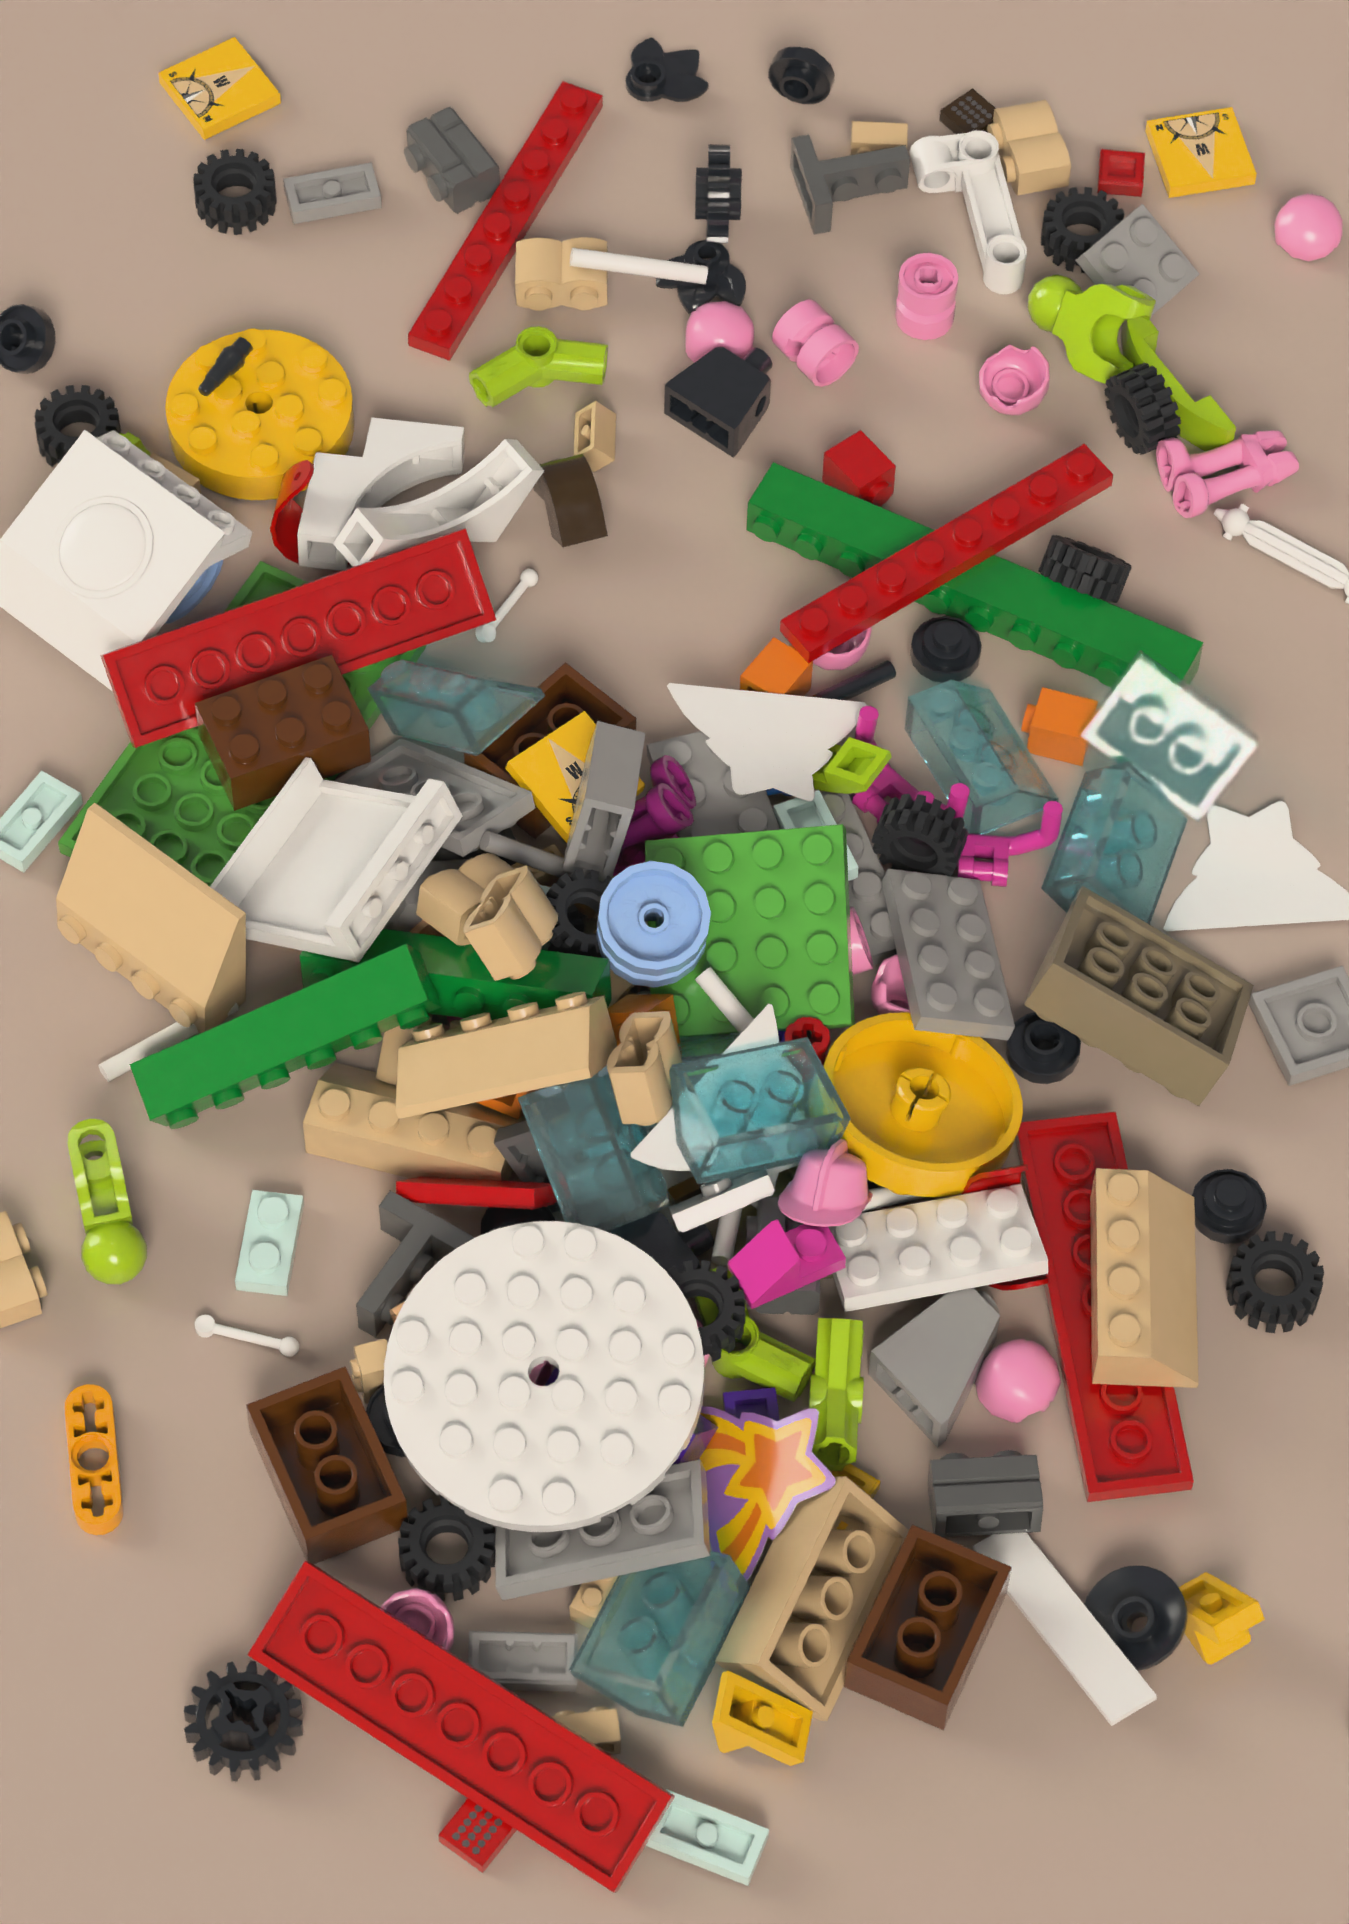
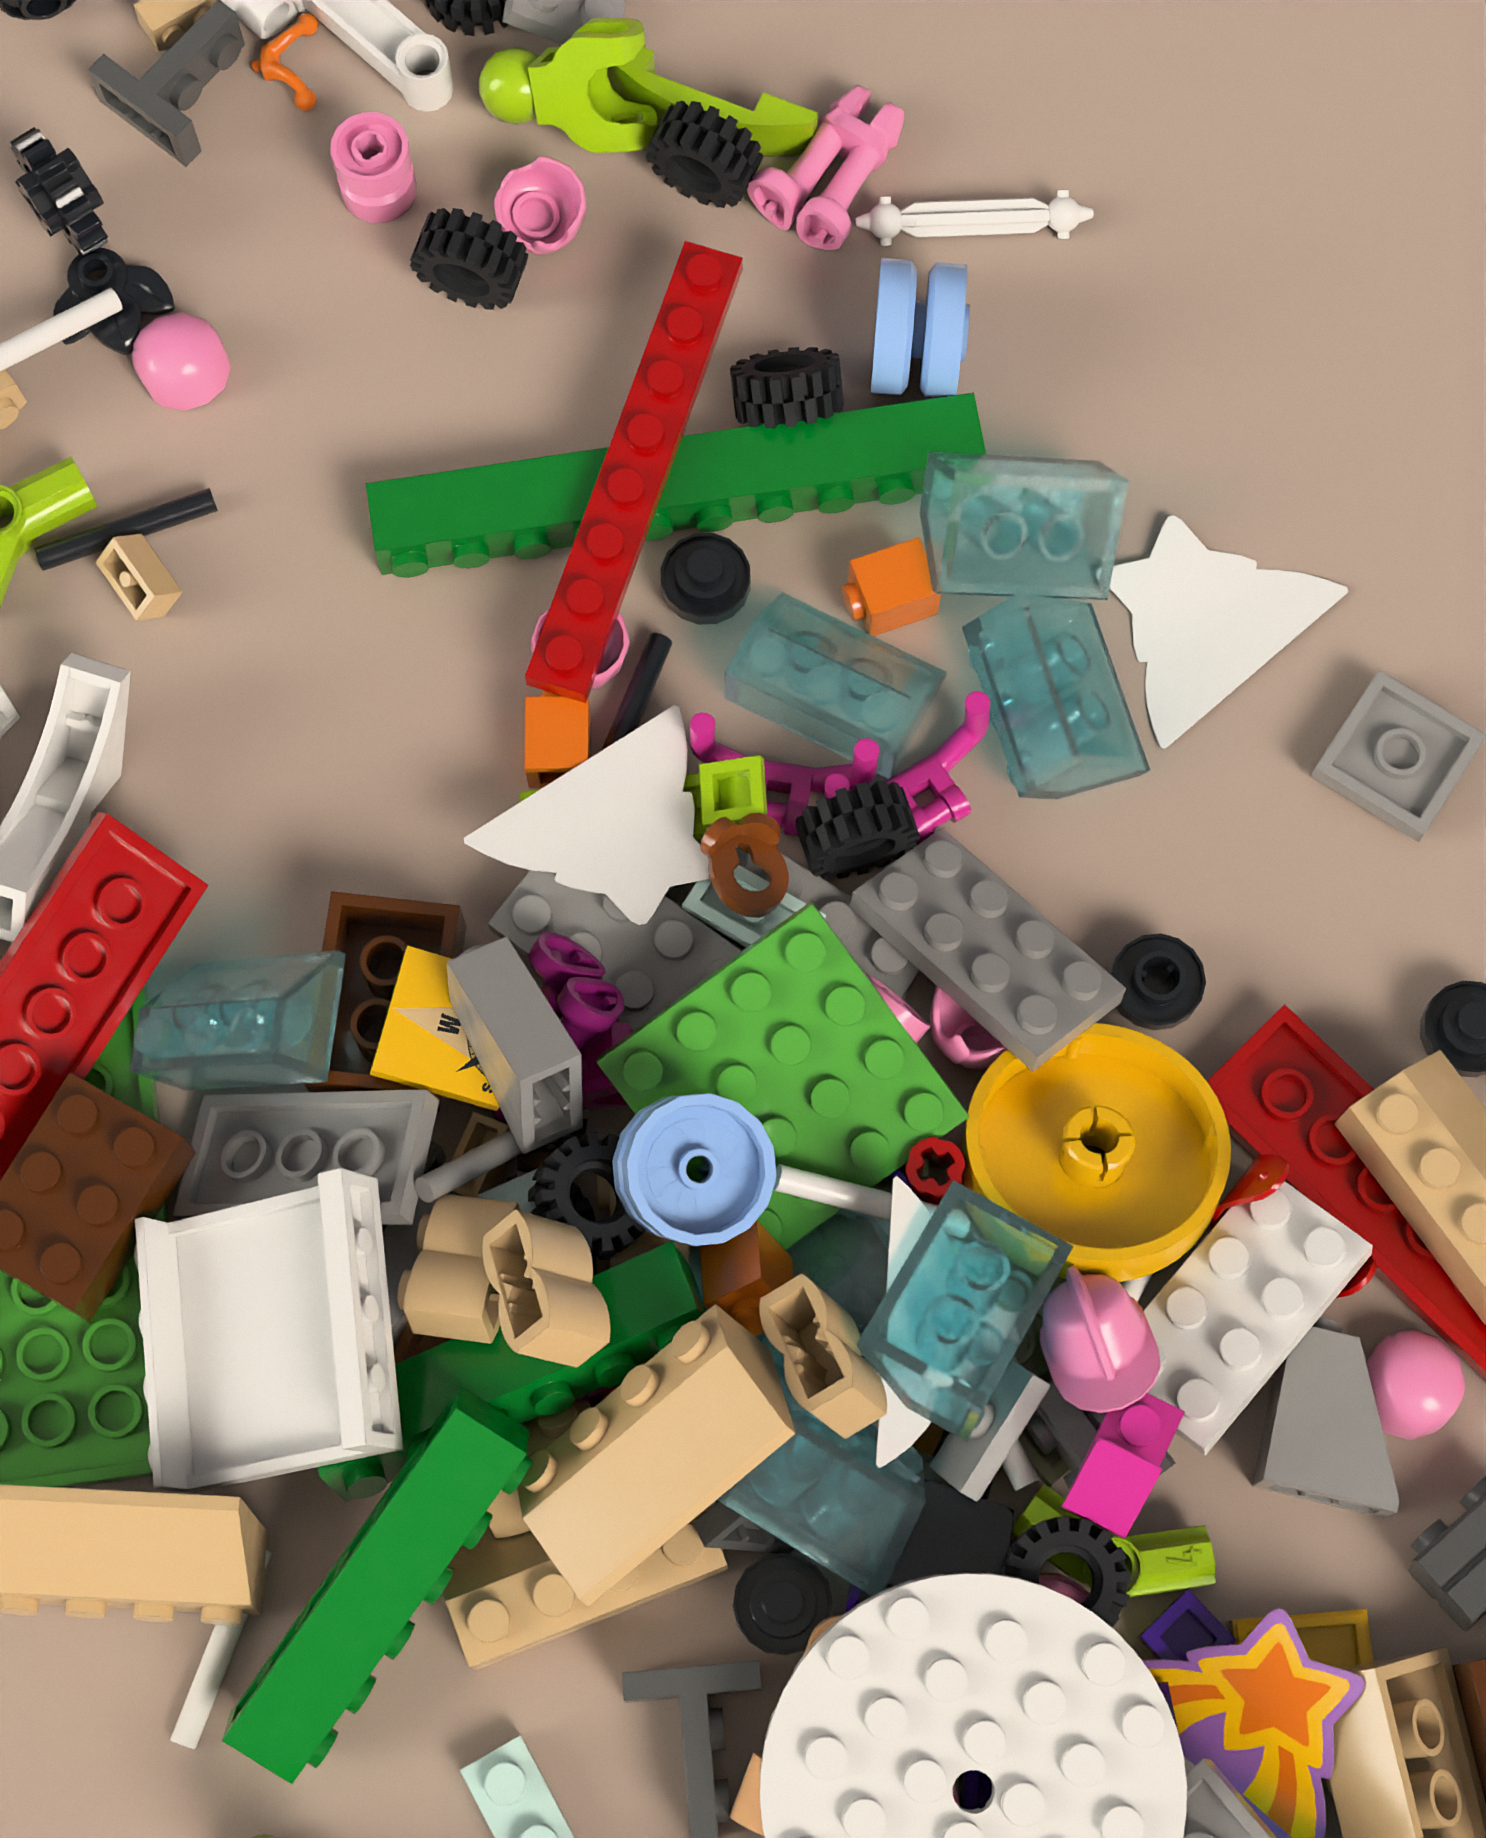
camera: 35 degrees left, 15 degrees up
(476, 1192) = (714, 1605): red tile -> none
(487, 632) = (193, 798): white hinge -> none
(571, 500) = (177, 676): dark brown brick -> none
(624, 412) = (144, 522): none -> black bar
(721, 397) = (241, 434): black torso -> none
(815, 343) = (286, 301): bright pink wheel -> none
(828, 781) = (759, 837): none -> dark orange piece
(837, 1391) = (1256, 1546): lime piece -> none
(860, 469) = (459, 428): red brick -> none
(915, 203) = (270, 64): none -> orange piece
(942, 379) = (469, 258): none -> black tyre
(1140, 997) = (1219, 855): dark tan slope -> none
(1196, 583) = (920, 328): none -> light blue wheel

